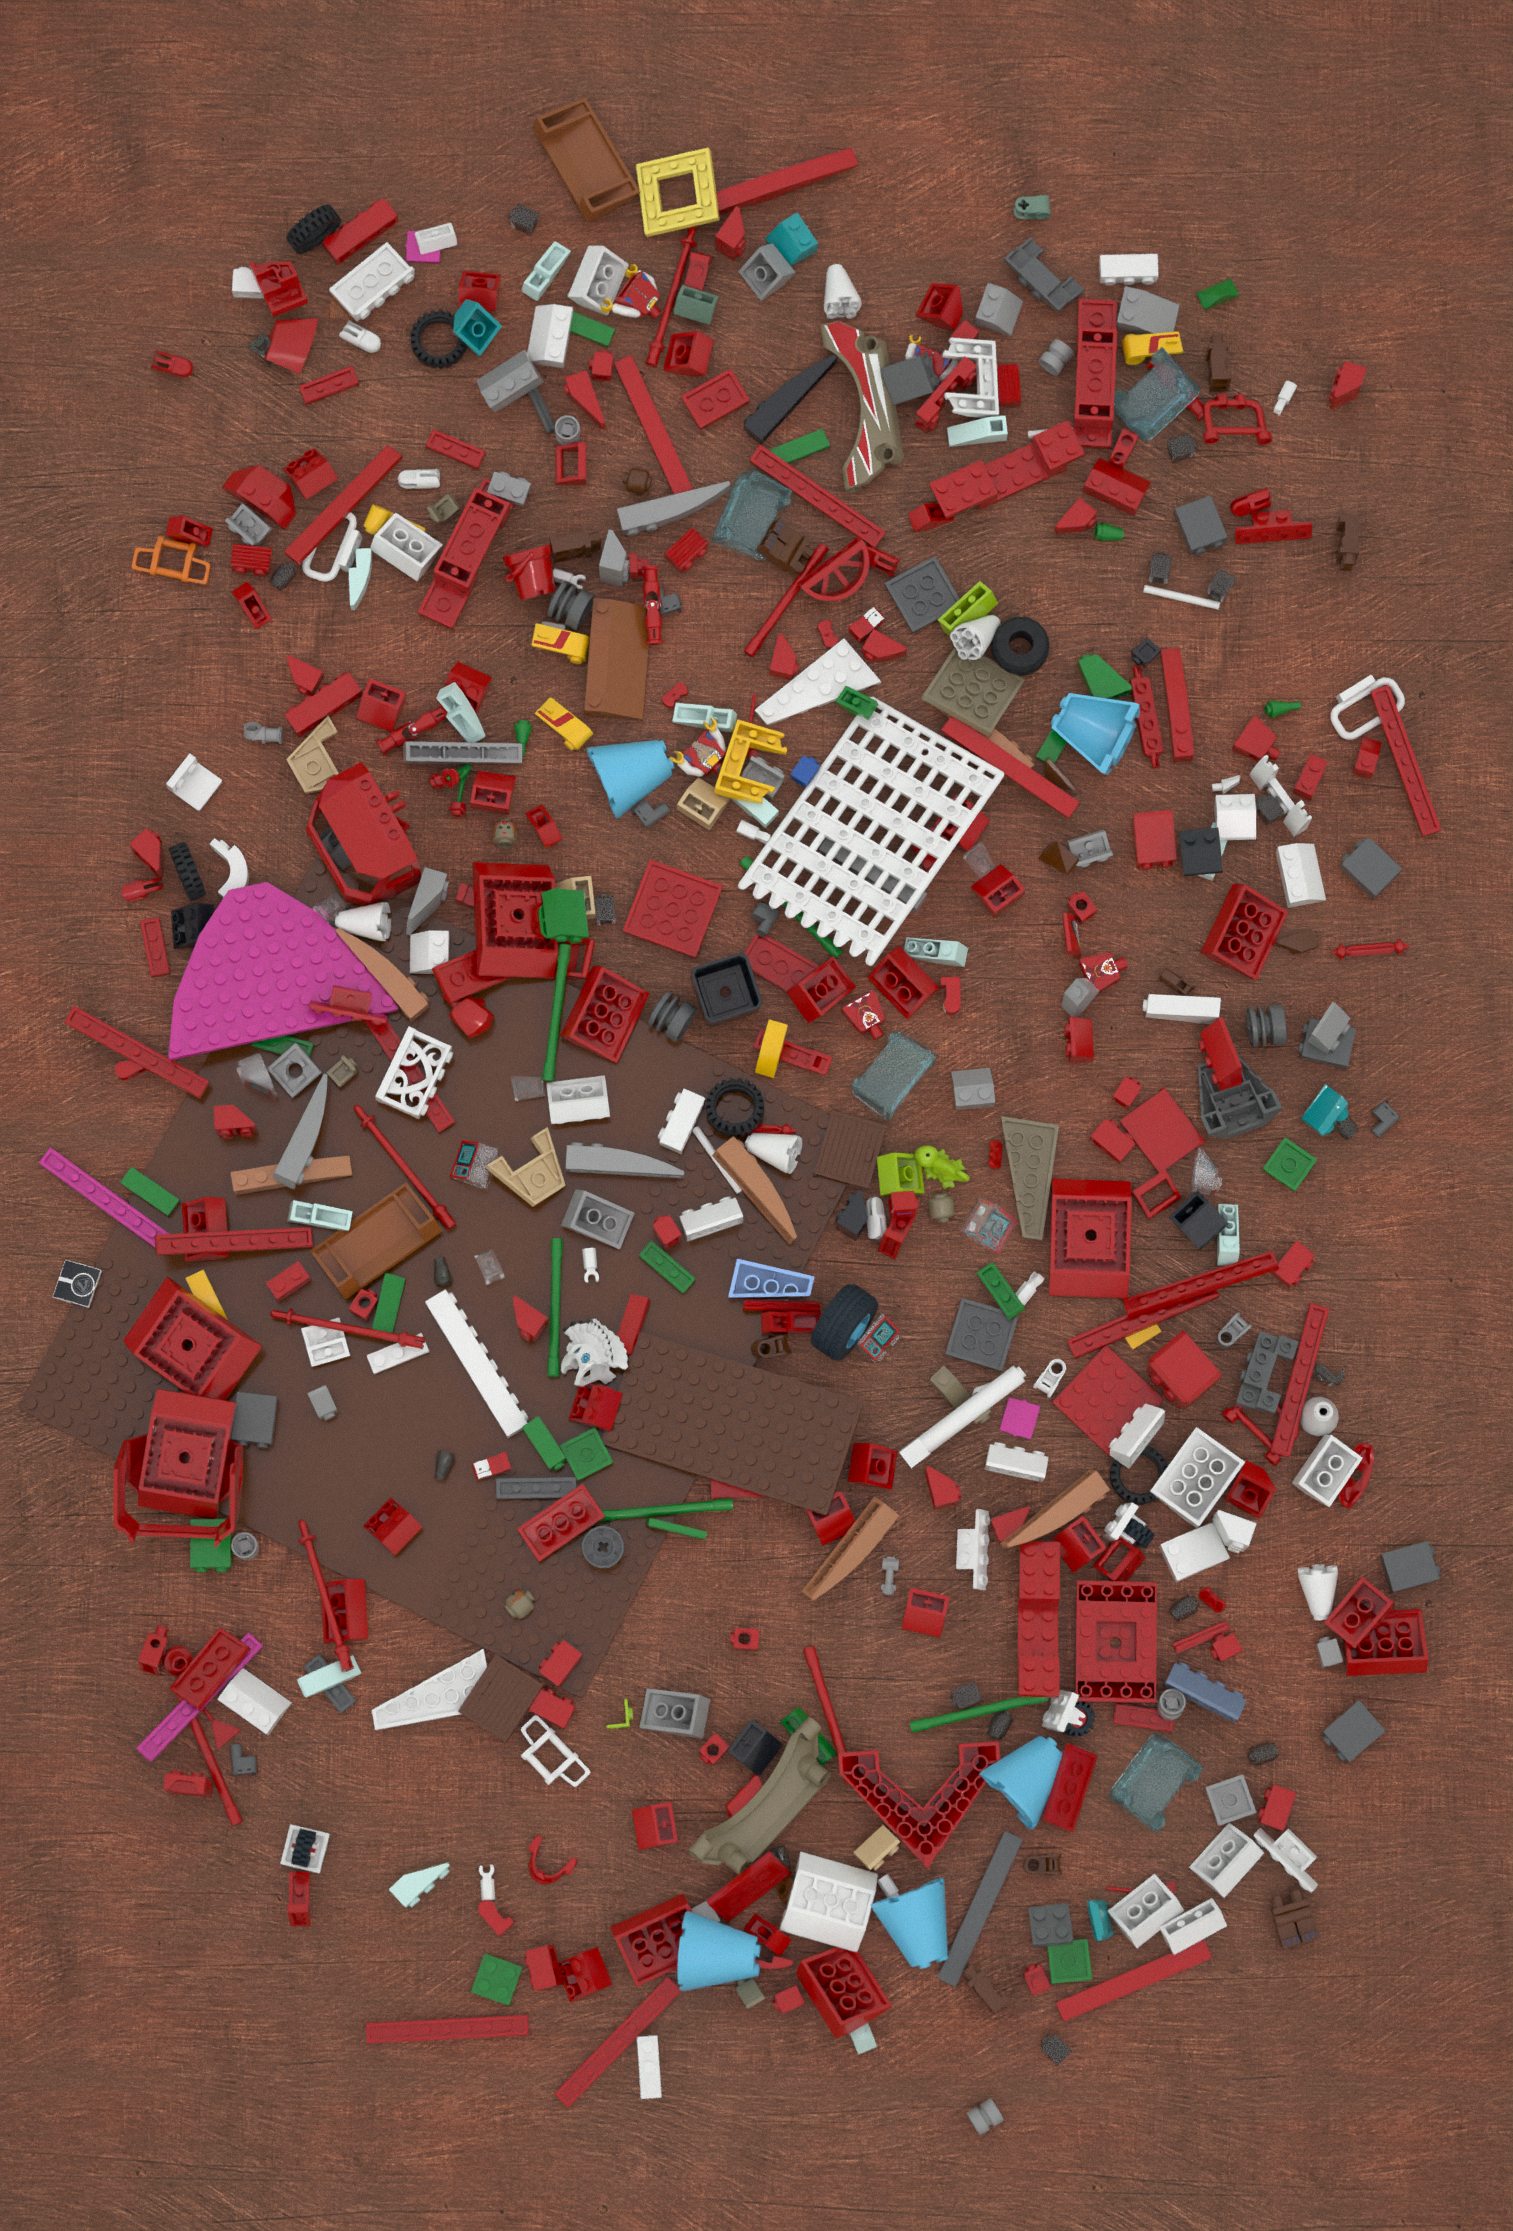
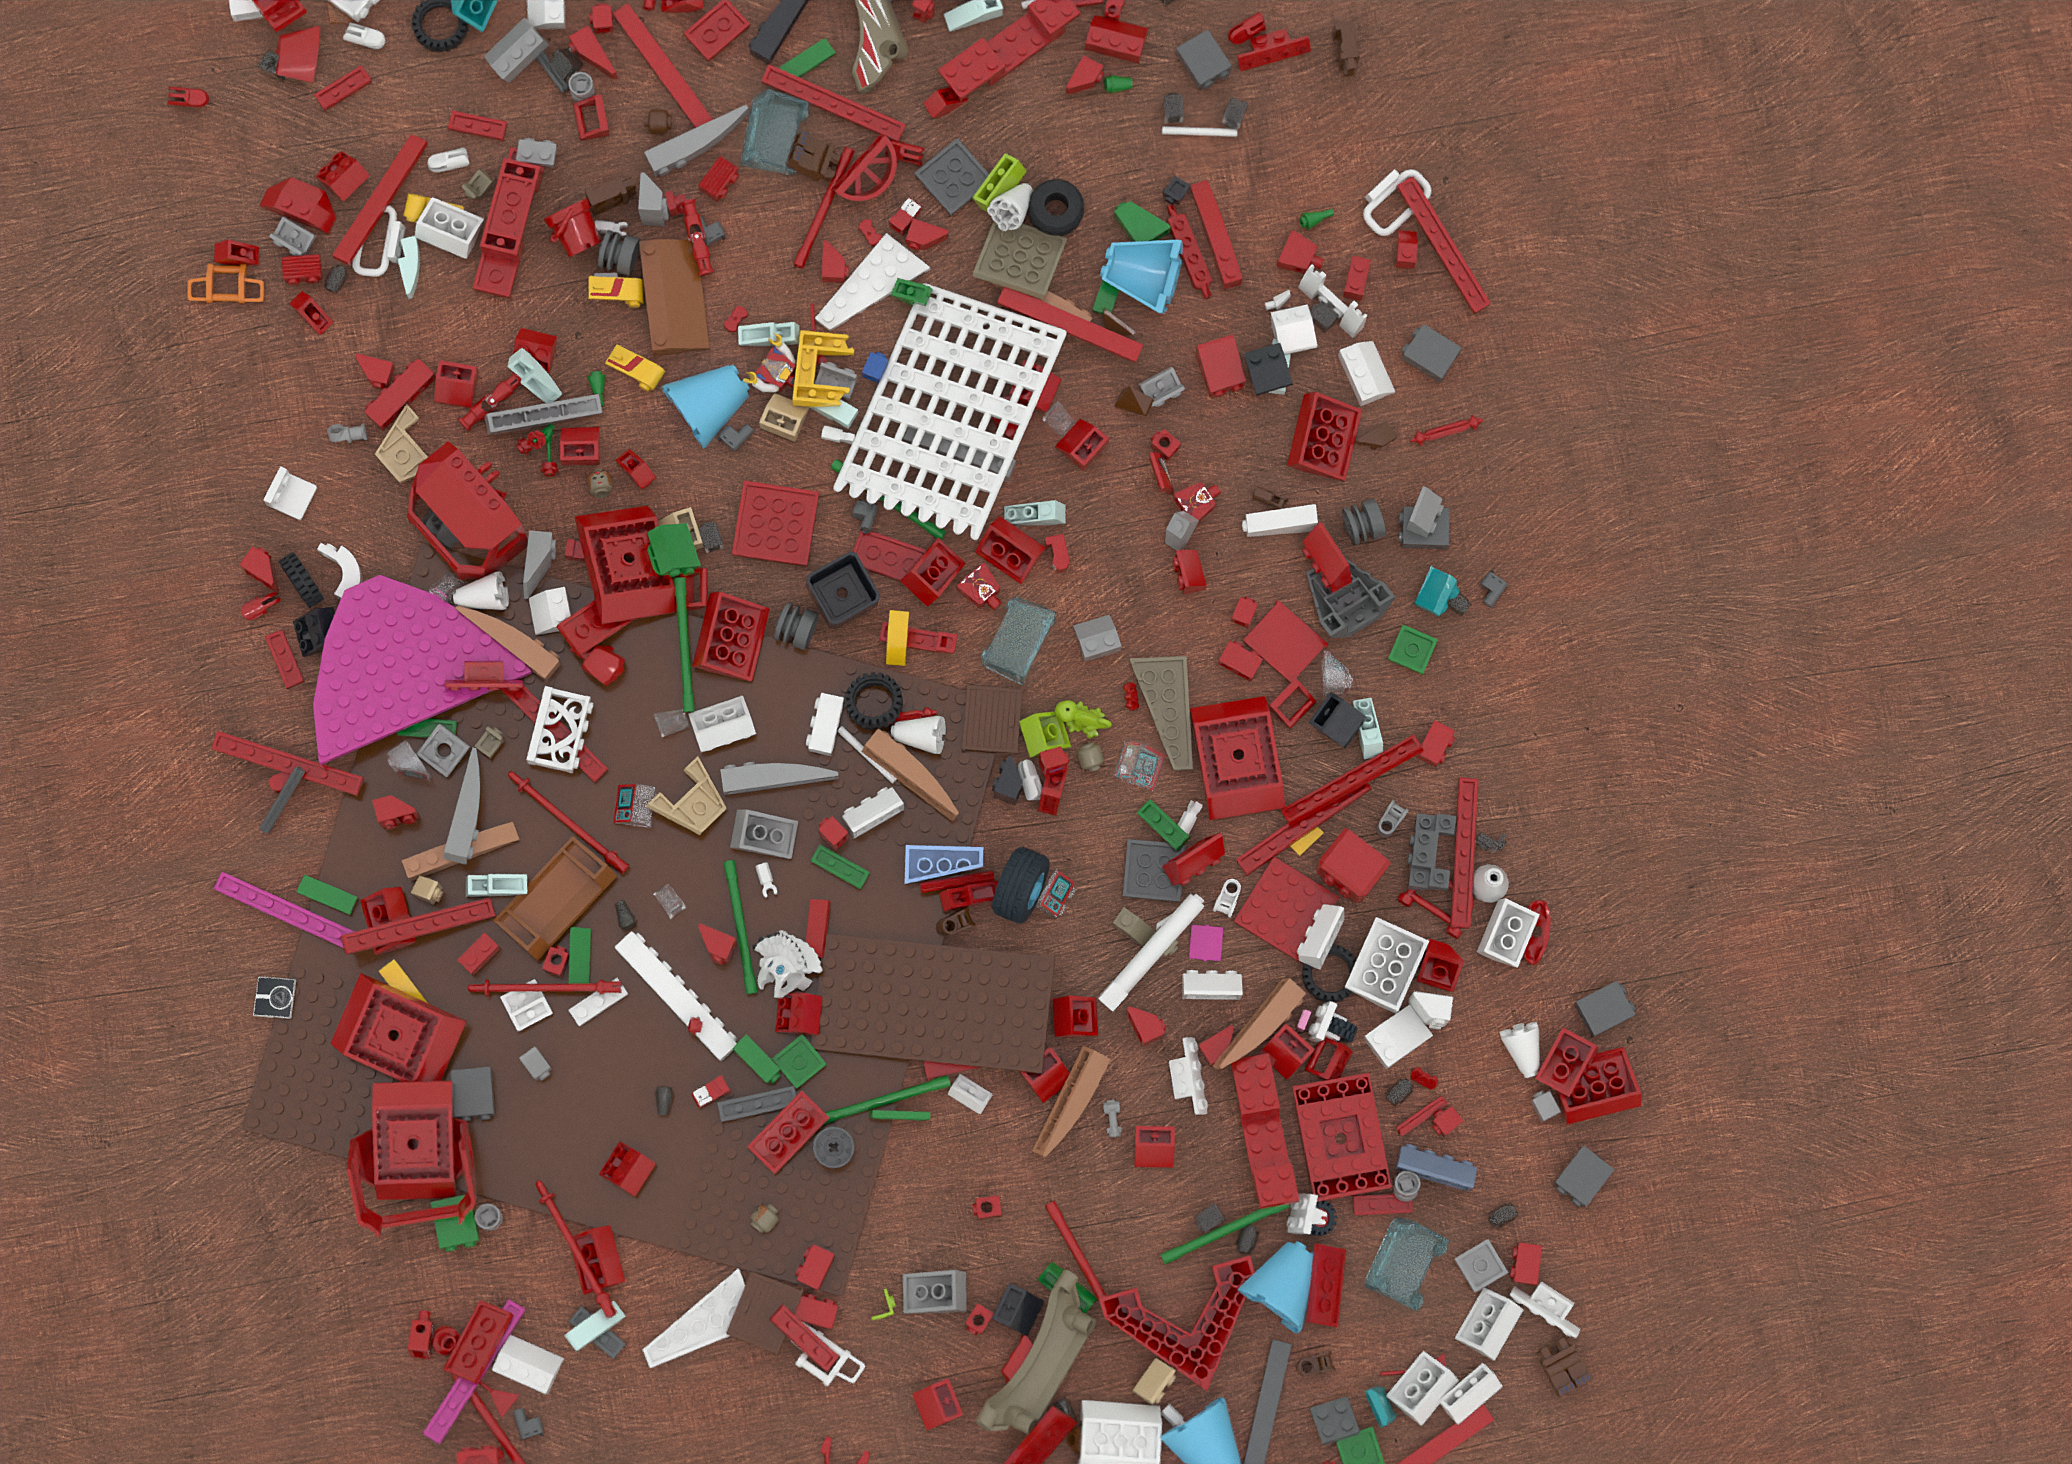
camera: 15 degrees left, 0 degrees up
(124, 1087) = (282, 799): none -> dark grey axle
(250, 1207) = (427, 890): none -> tan slope
(489, 1396) = (695, 1025): none -> red plate
(534, 1731) = (804, 1338): none -> red tile
(556, 403) = (565, 62): none -> clear smoke brick
(751, 1521) = (970, 1094): none -> white slope
(1025, 1332) = (1195, 859): none -> red slope
(1101, 1516) = (1303, 1020): none -> bright pink tile

